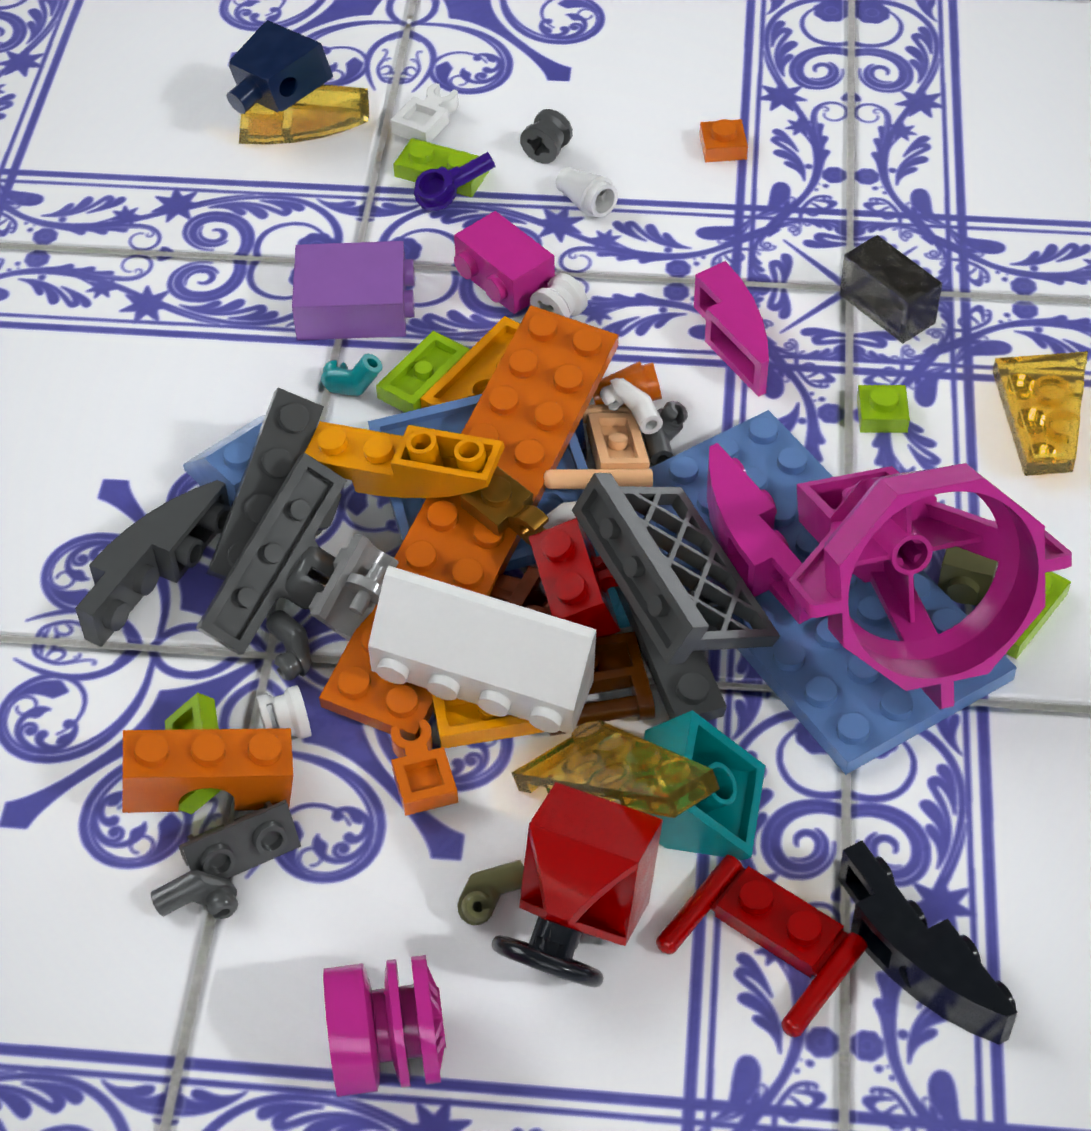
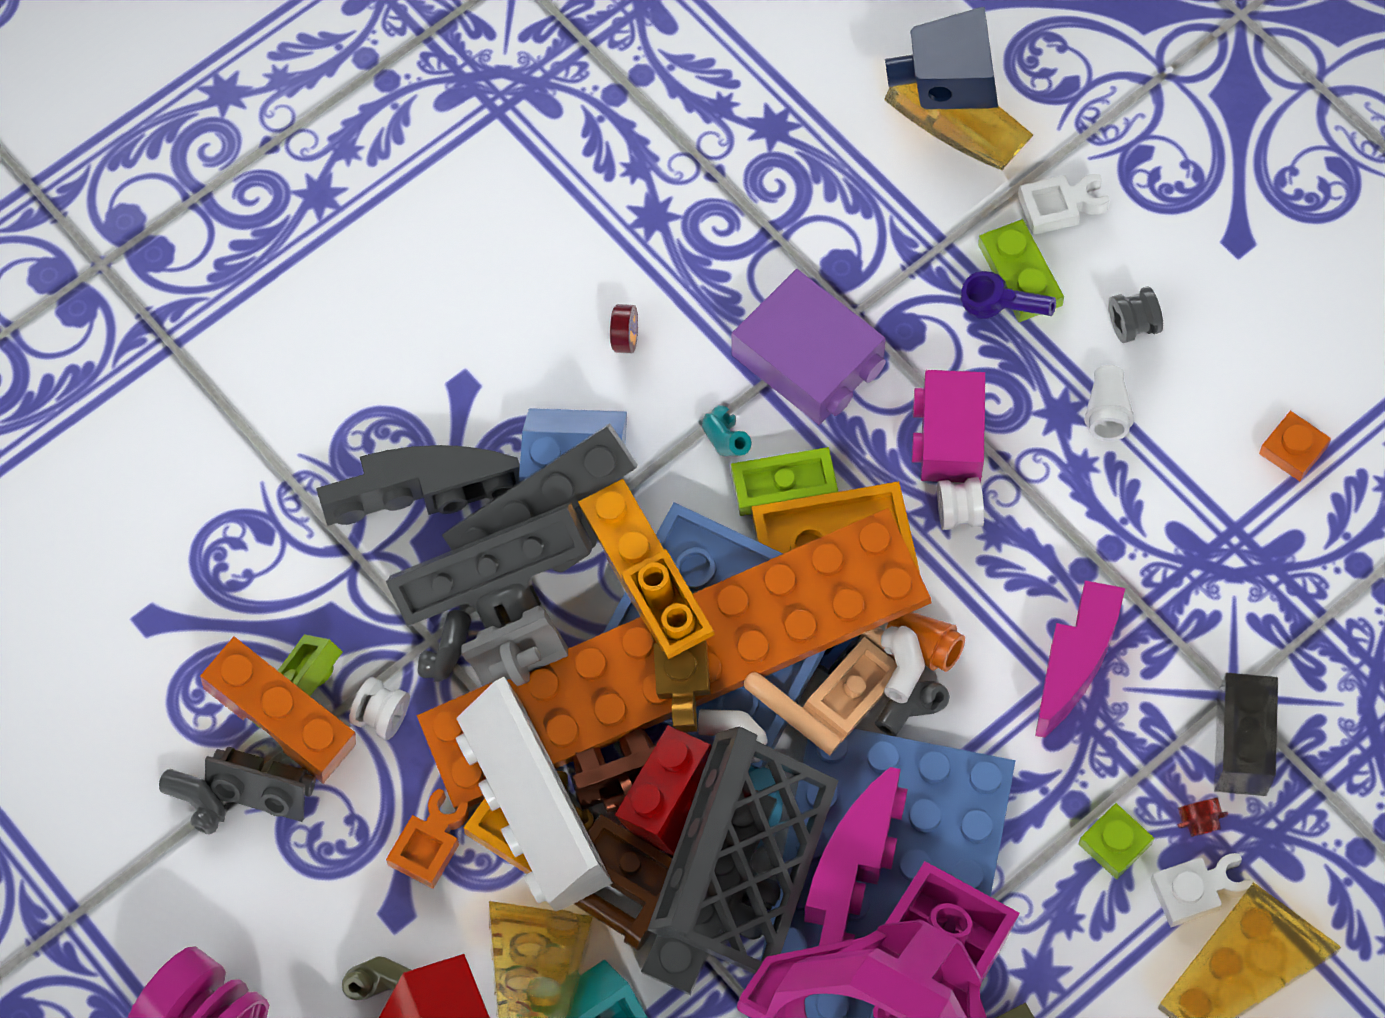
camera: 45 degrees right, 15 degrees up
(204, 367) = (624, 328): none -> dark red tile
(917, 353) = (1201, 816): none -> clear red plate
(962, 397) = (1193, 891): none -> white plate

